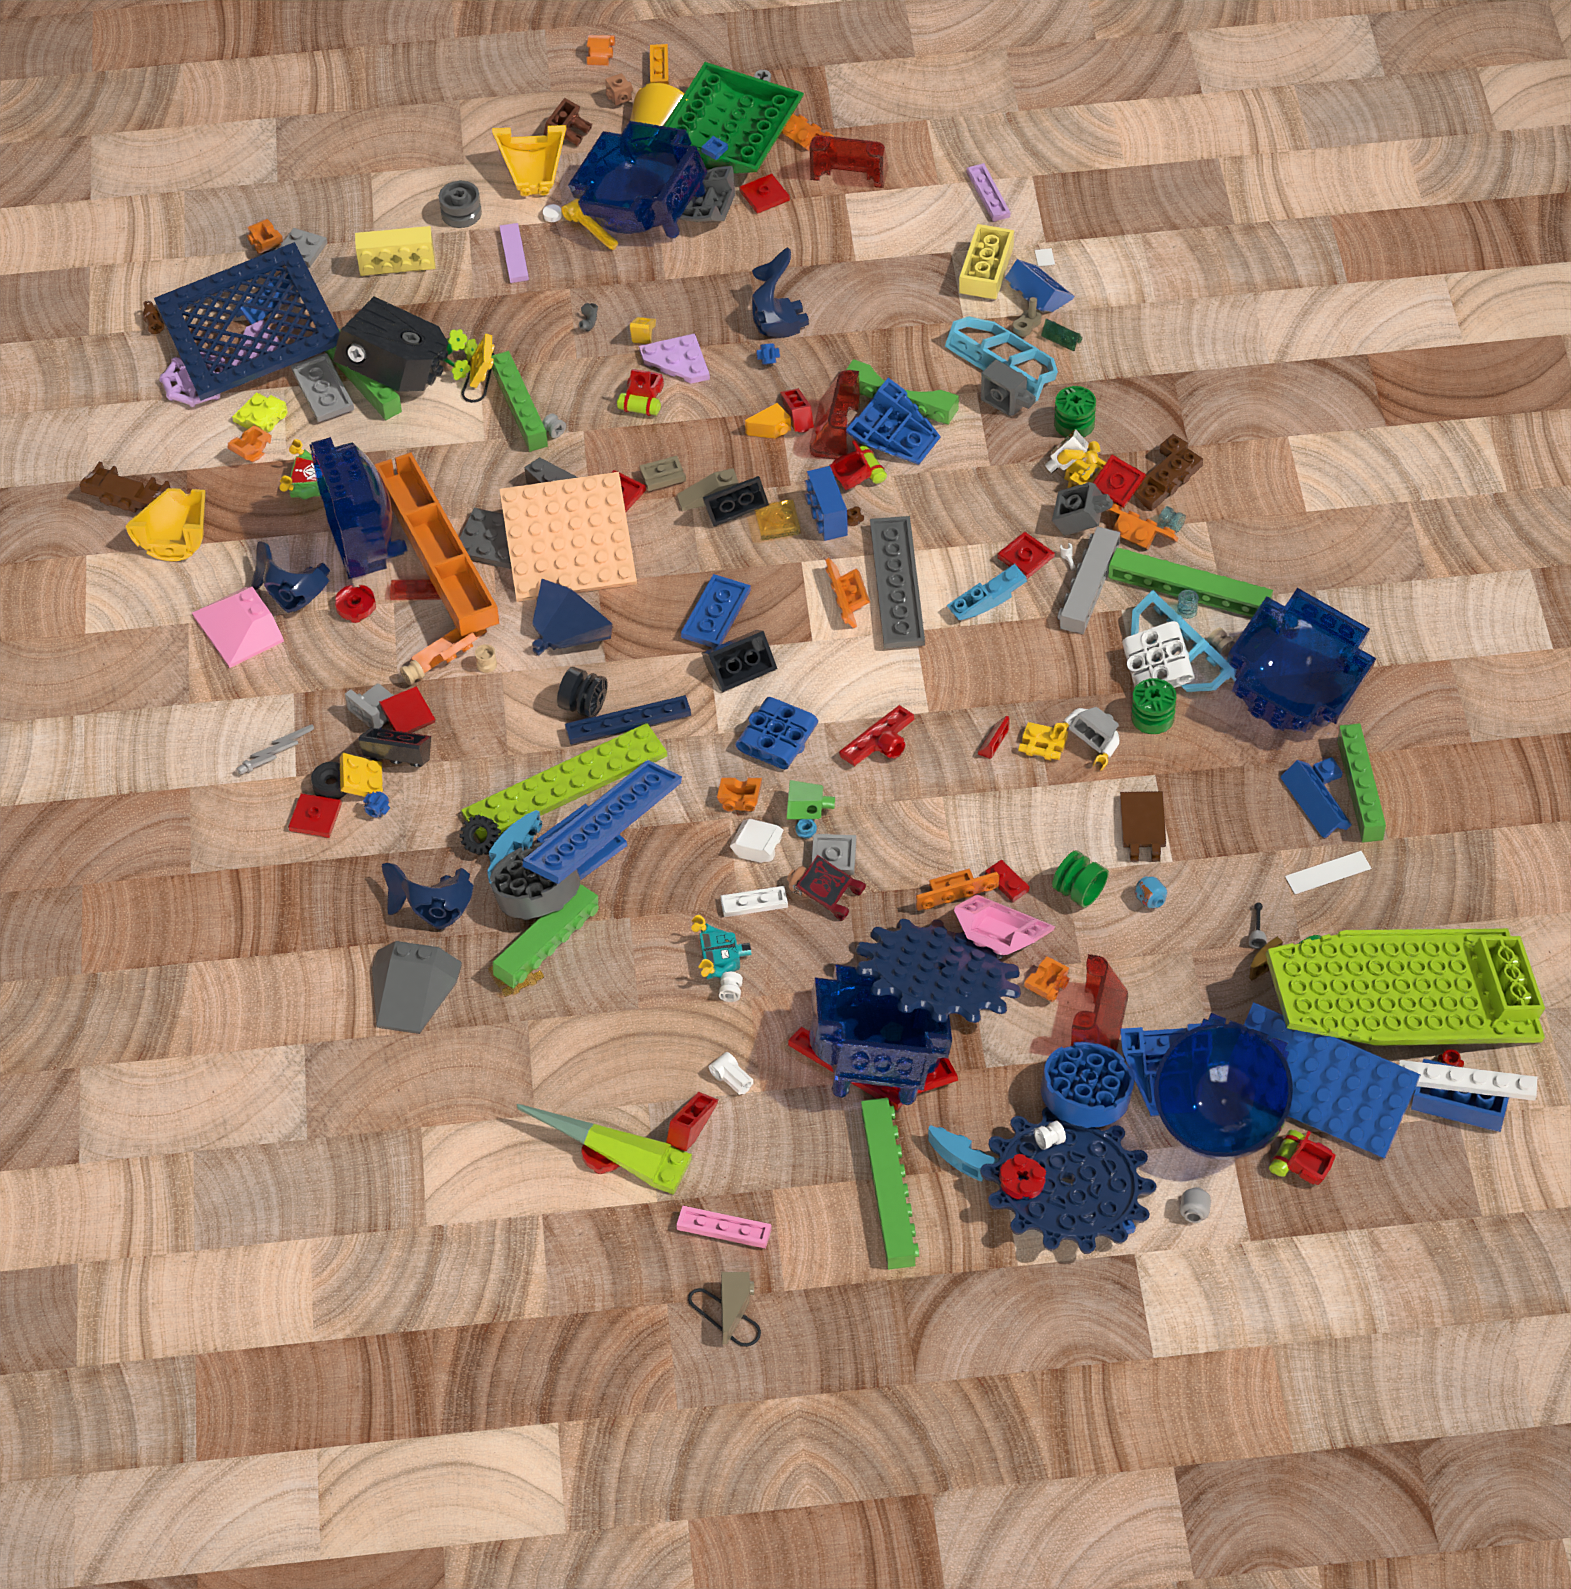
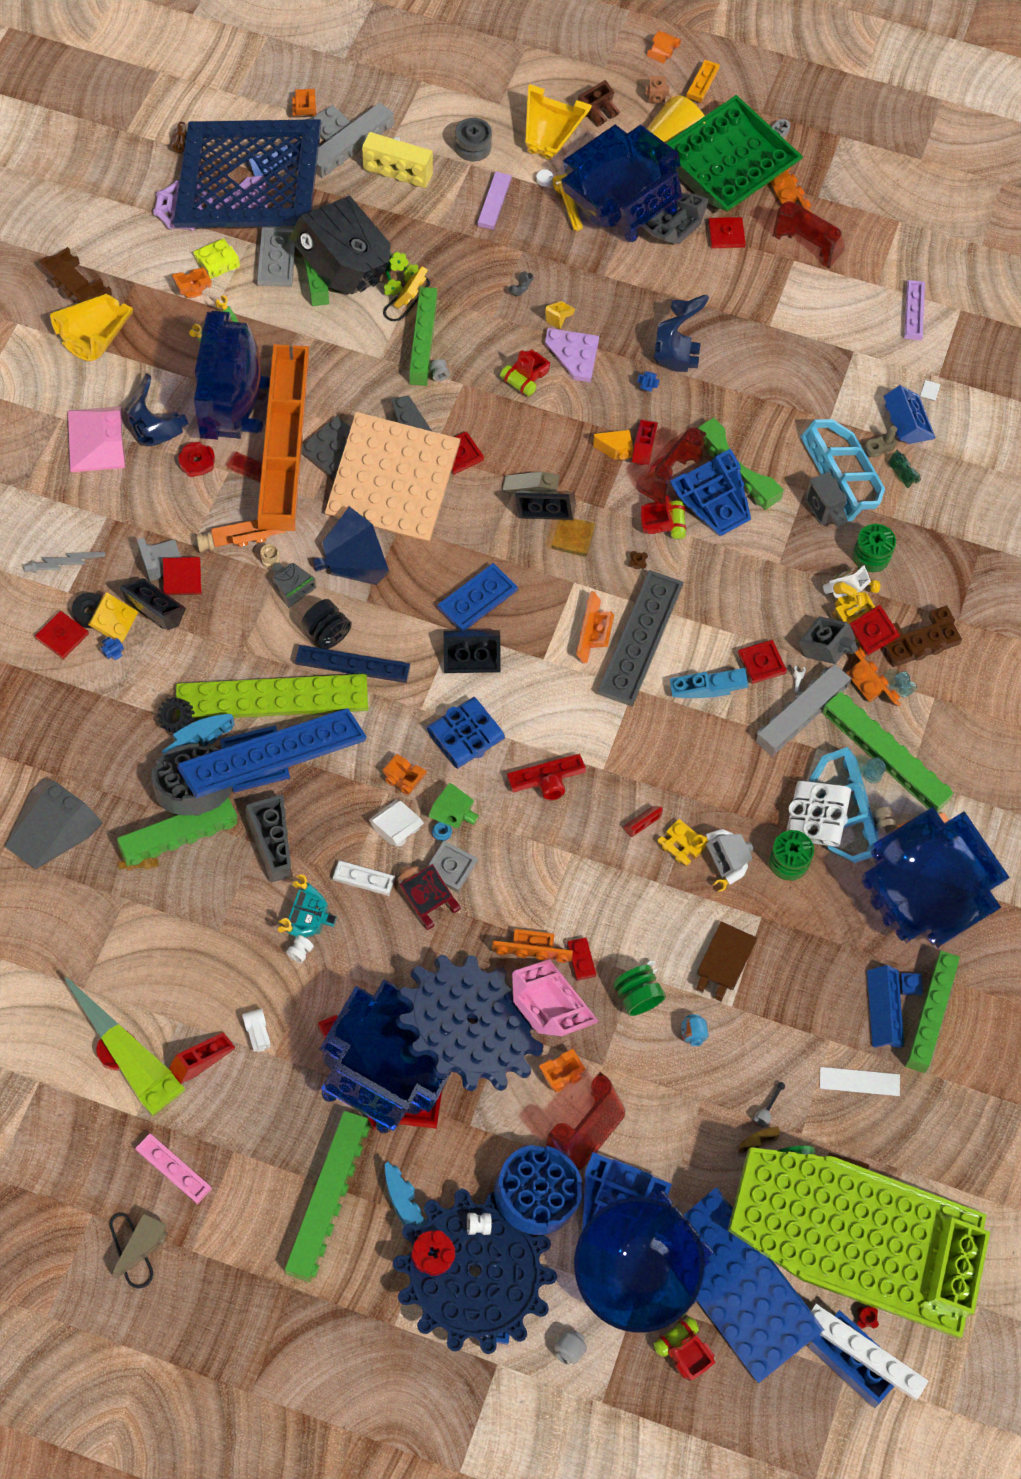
camera: 20 degrees right, 10 degrees up
(336, 247) = (352, 138): none -> light grey brick
(435, 905) = (105, 765): dark blue hips -> none
(522, 672) = (292, 583): none -> dark grey torso
(641, 900) = (270, 834): none -> dark grey wedge
(662, 473) = (503, 451): dark tan plate -> none
(714, 147) = (701, 176): blue plate -> none
(826, 503) = (618, 540): blue brick -> none
(986, 261) = (875, 374): light yellow brick -> none

